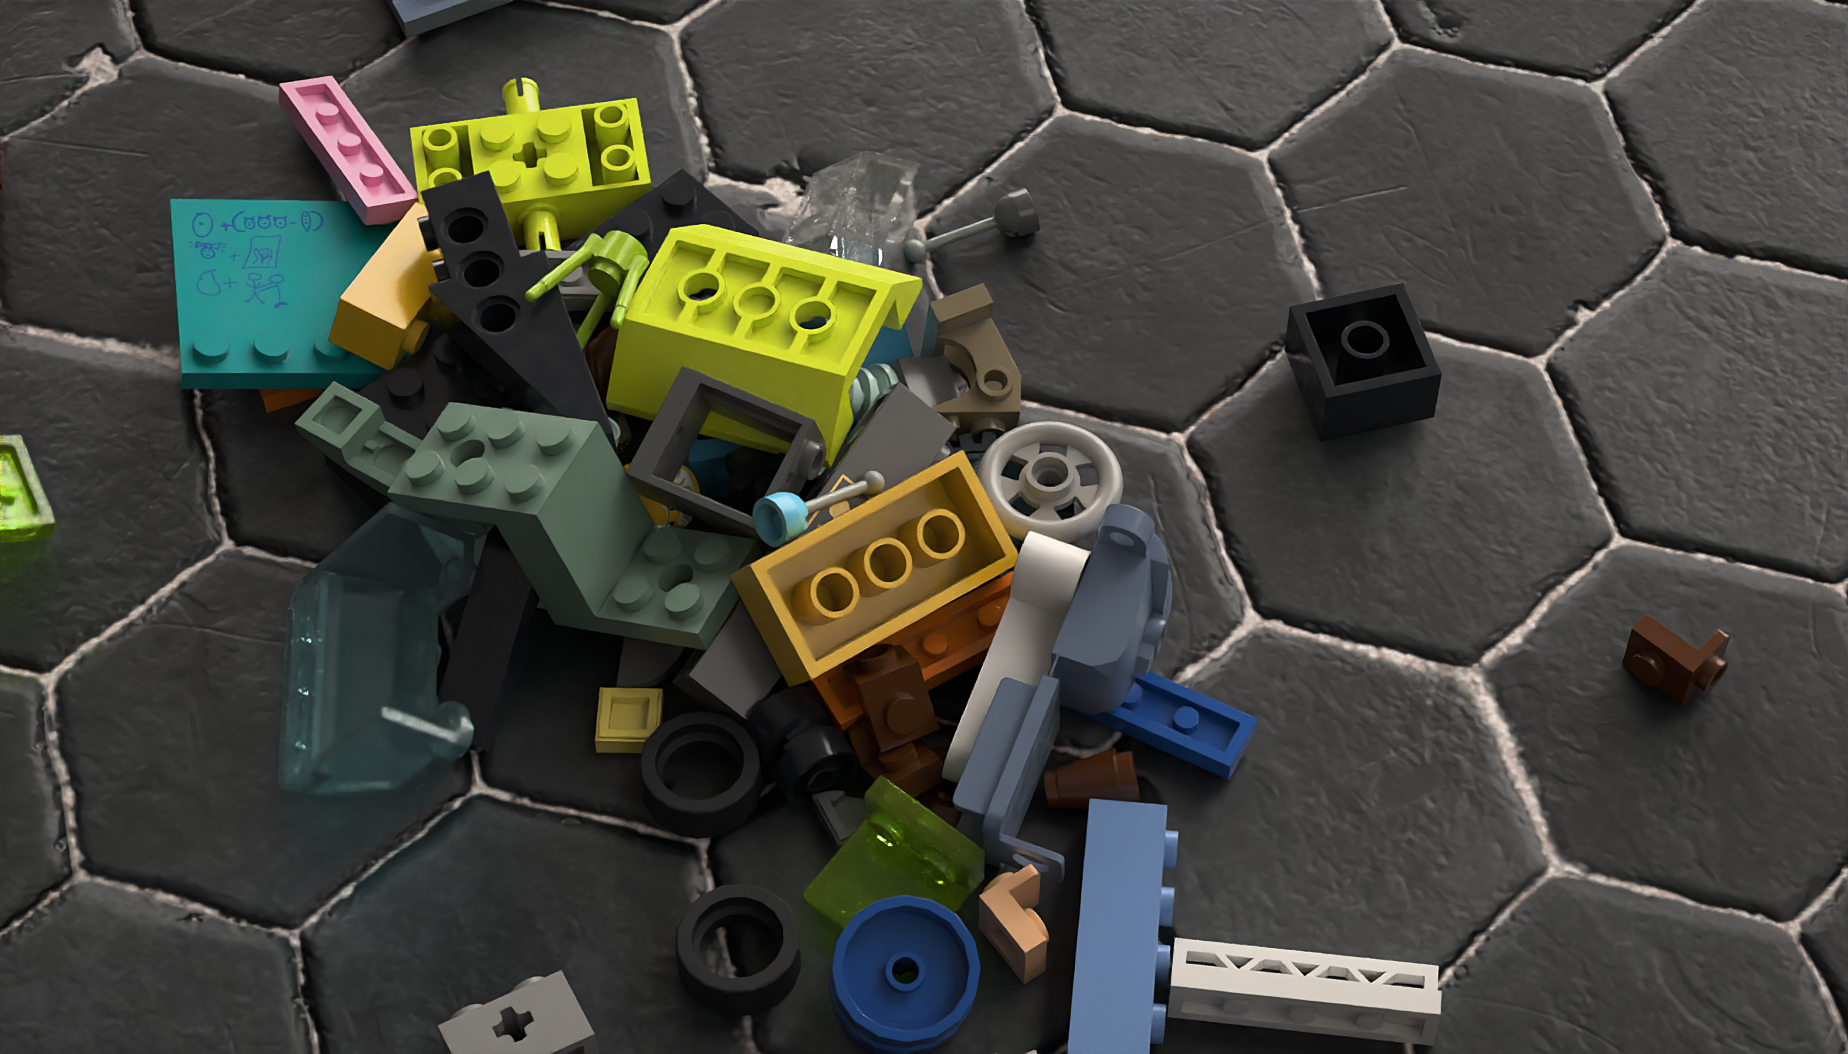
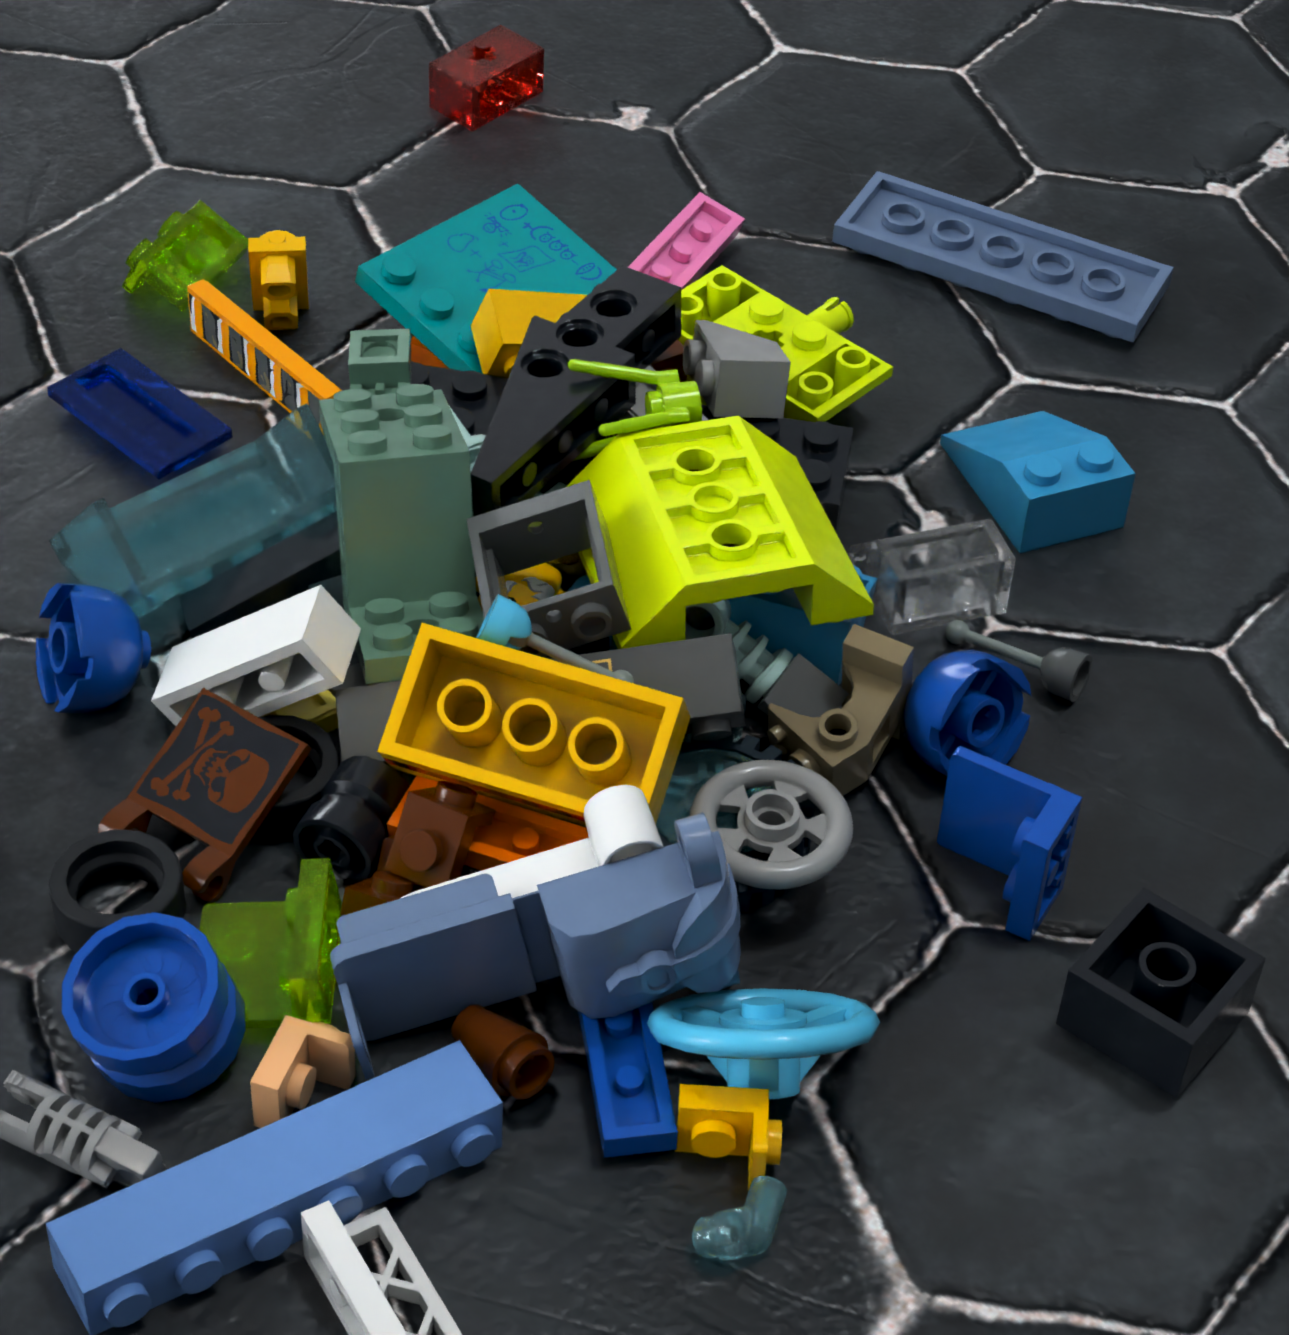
camera: 50 degrees right, 10 degrees down
(113, 441) = (278, 278): none -> yellow hips
(168, 641) = (140, 413): none -> clear blue piece
(195, 512) = (256, 351): none -> light orange tile
(457, 829) = (90, 649): none -> blue cylinder
(571, 197) = (737, 371): none -> light grey slope
(606, 713) = (263, 657): none -> white brick
(692, 813) = (214, 784): none -> flag
(801, 87) = (1044, 478): none -> dark azure slope
(1023, 297) = (966, 703): none -> blue cylinder
(1169, 338) = (1012, 827): none -> blue bracket
(1225, 617) = (763, 1033): none -> medium azure piece
(1276, 678) = (729, 1122): none -> yellow bracket
(1357, 728) = (744, 1229): none -> clear light blue arm

